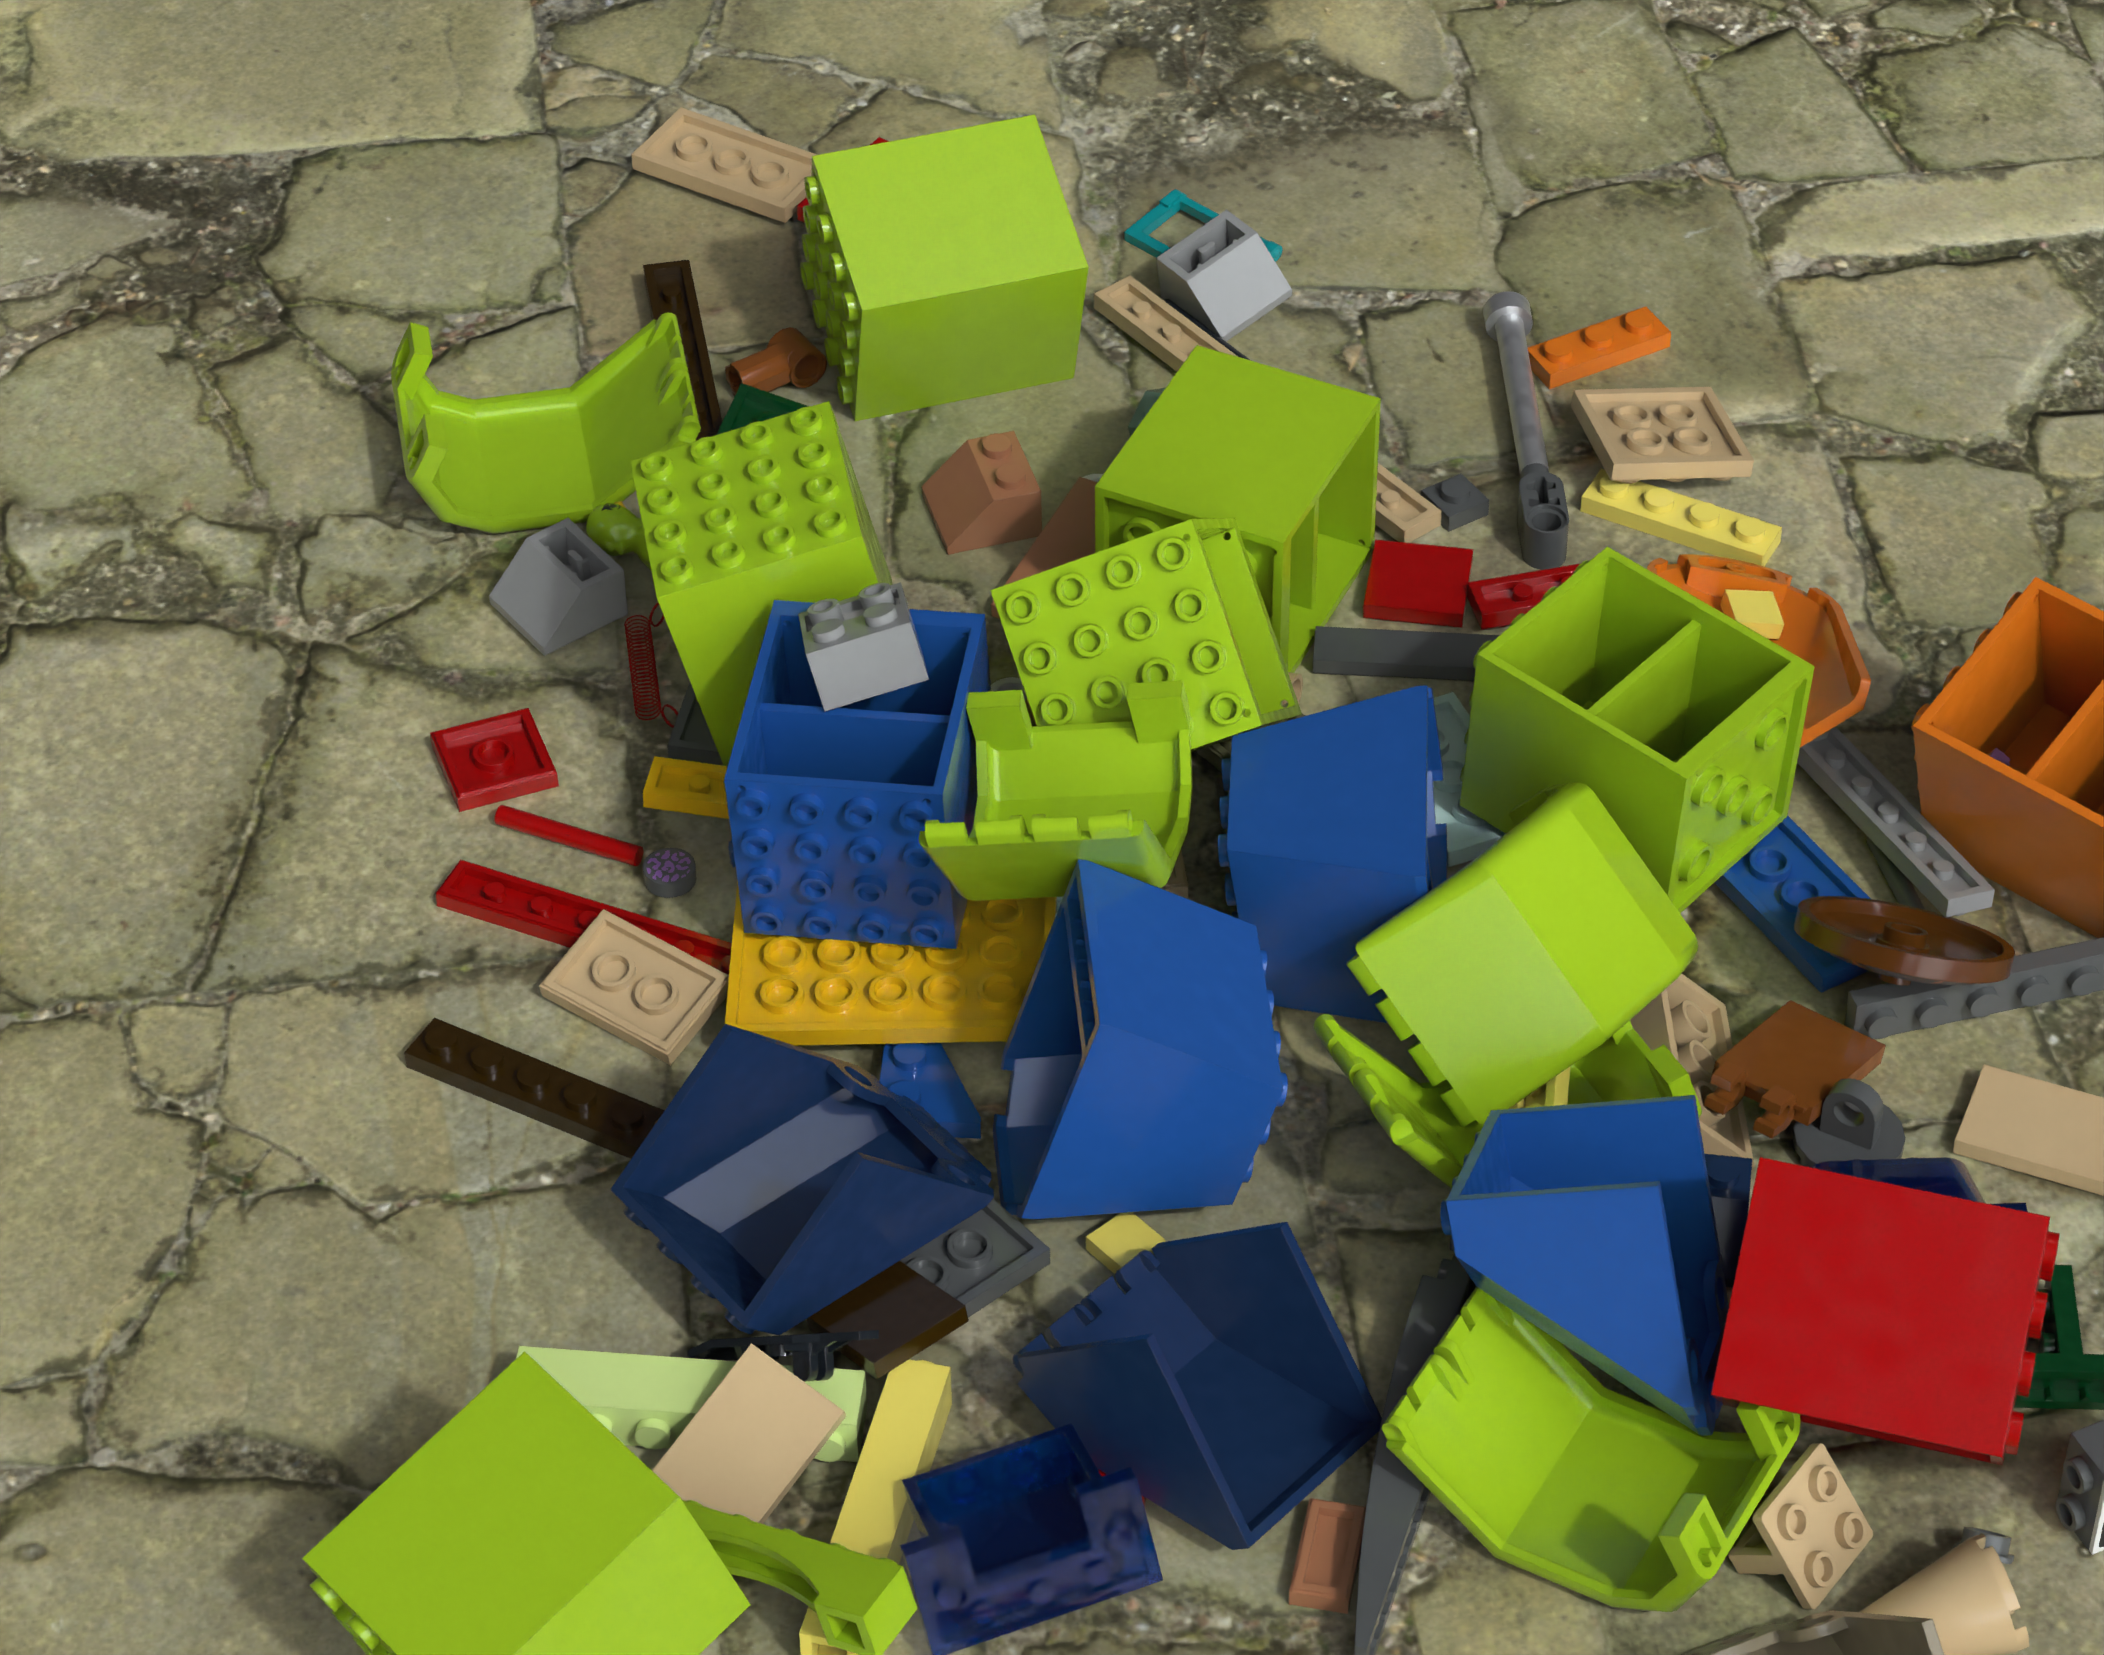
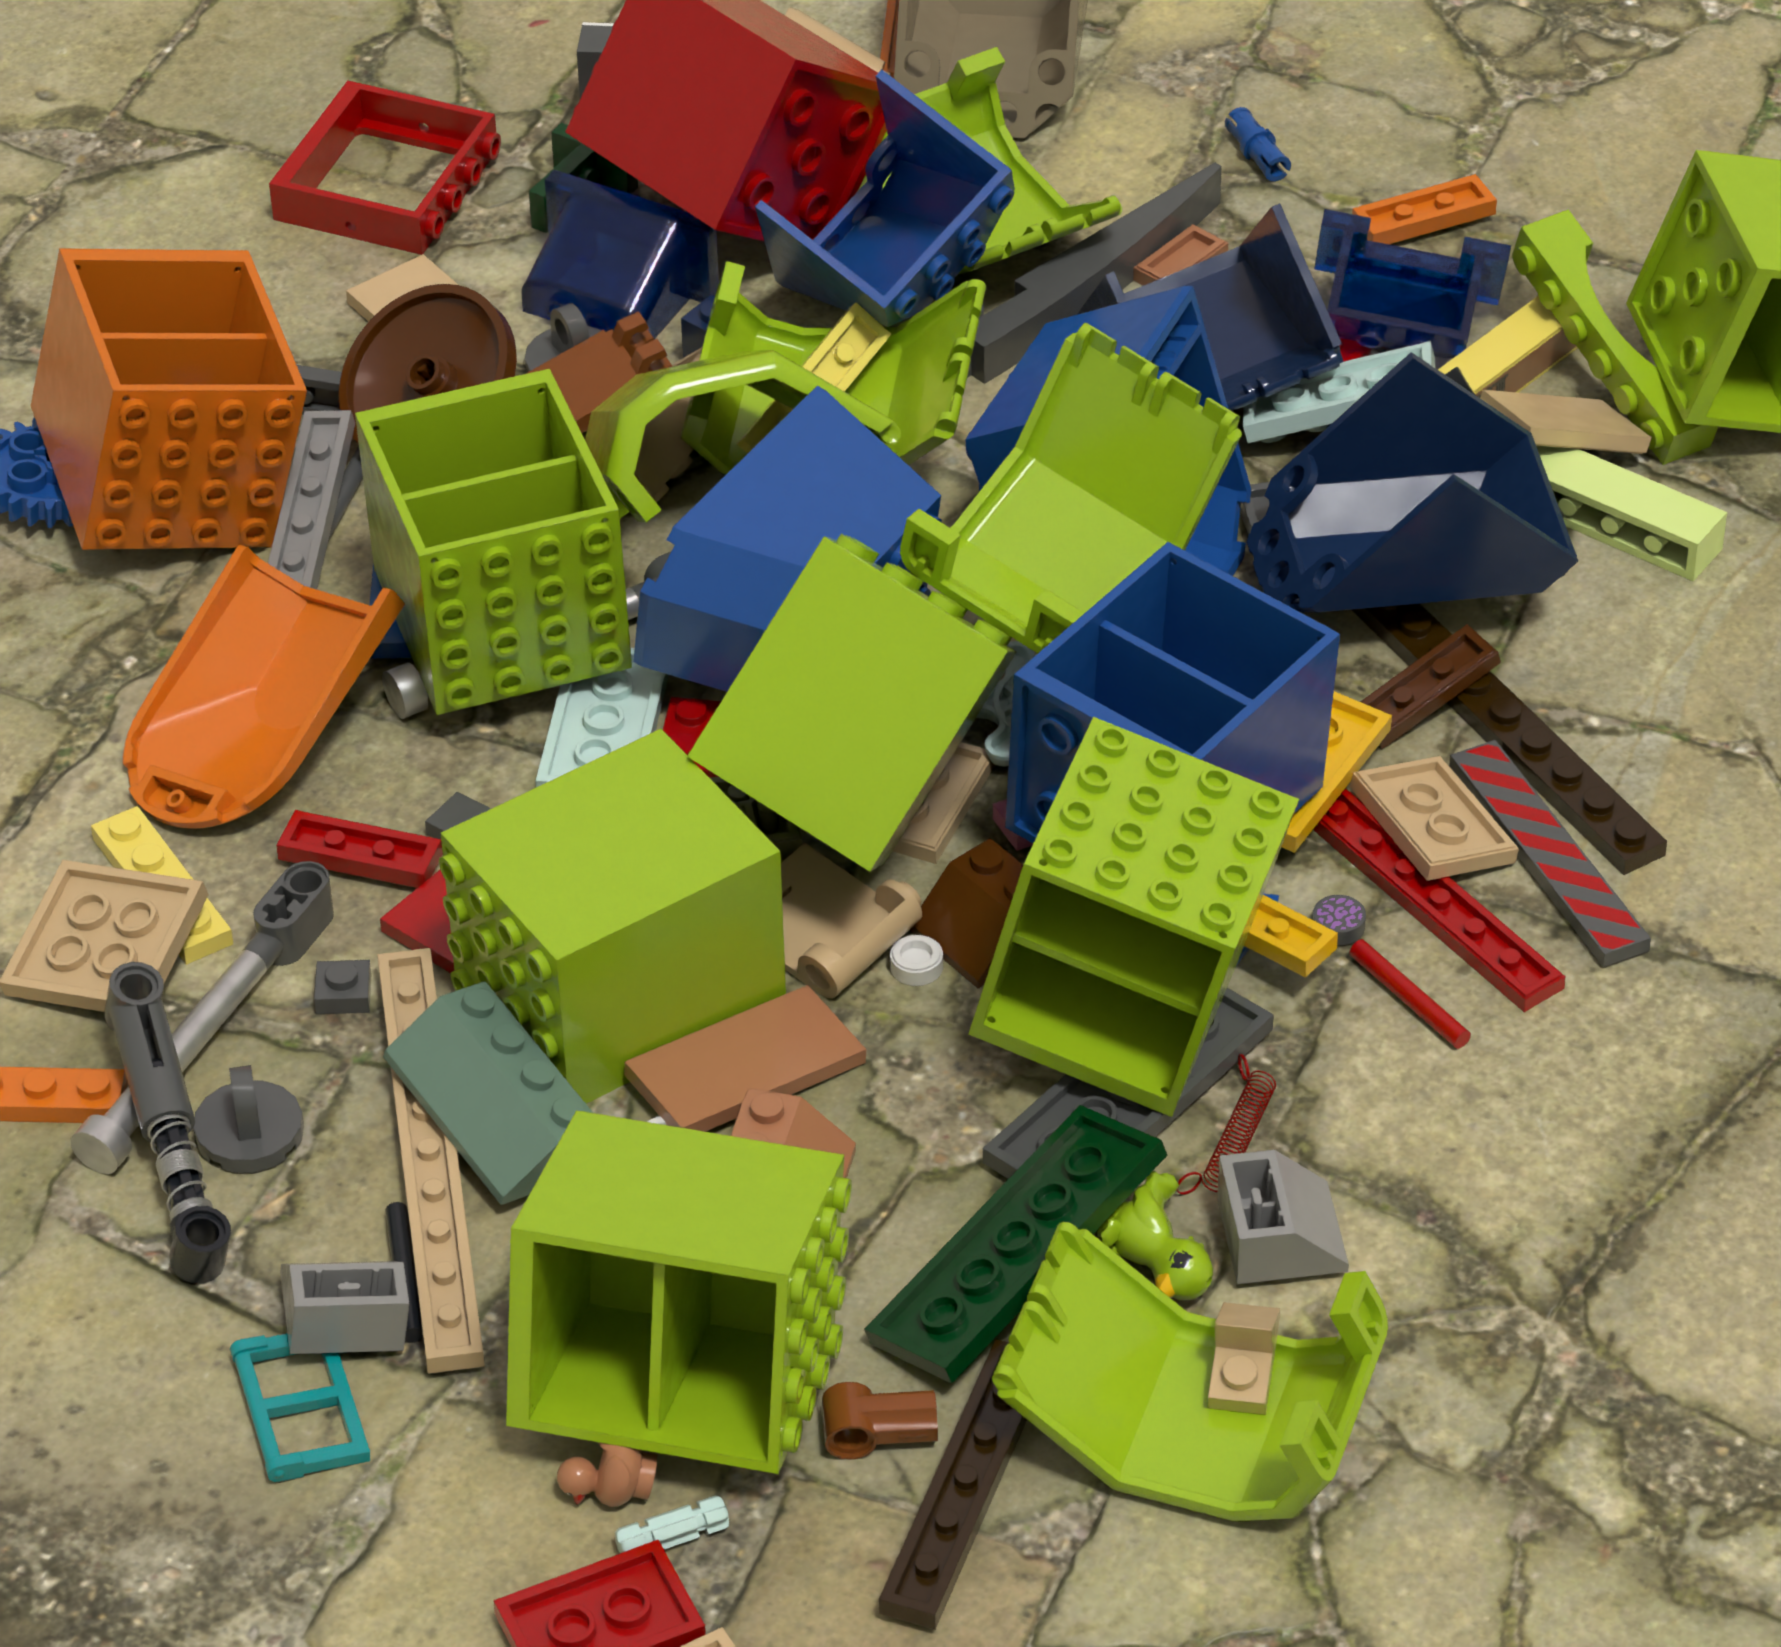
camera: 150 degrees left, 0 degrees up
(494, 759) = (1436, 1099): red tile -> none
(515, 1010) = (1551, 854): none -> dark grey tile
(528, 485) = (1243, 1357): none -> tan slope
(862, 645) = (1146, 675): light grey slope -> none
(964, 1381) = (1323, 399): none -> light aqua plate
(1421, 378) = (248, 1124): none -> dark grey tile
(1551, 348) = (165, 1118): none -> piece
(1754, 610) = (208, 753): light yellow tile -> none

